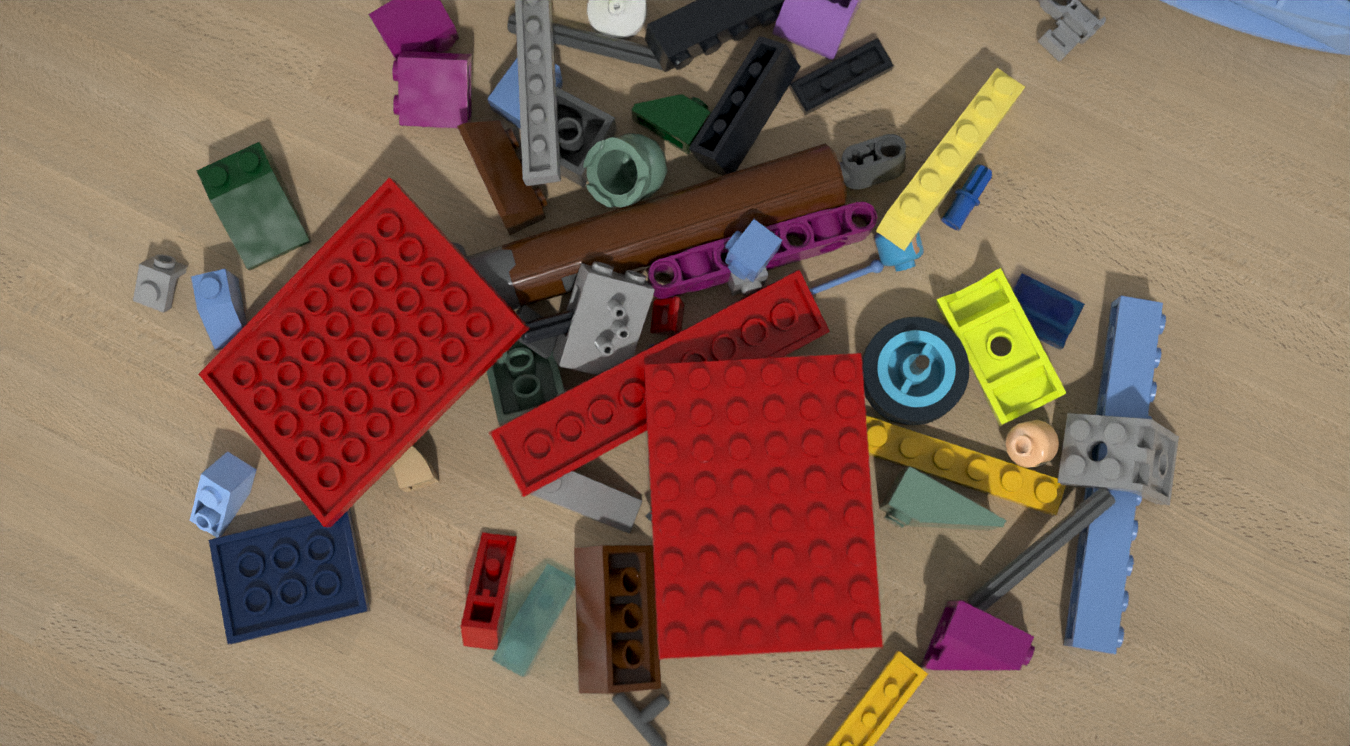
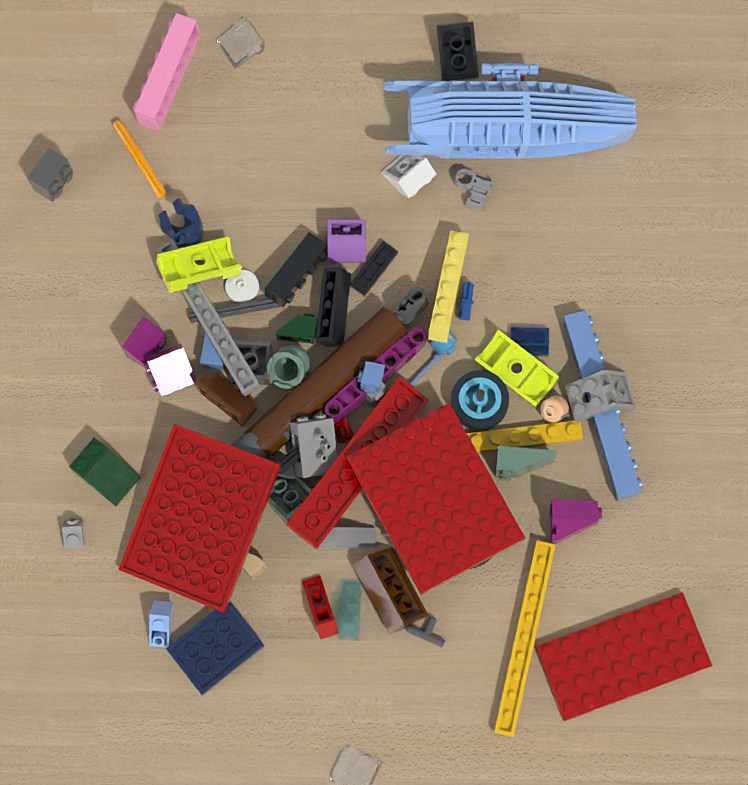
camera: 25 degrees left, 5 degrees down
(219, 305) = (113, 531): medium blue slope -> none
(1042, 549) = (583, 457): dark grey axle -> none

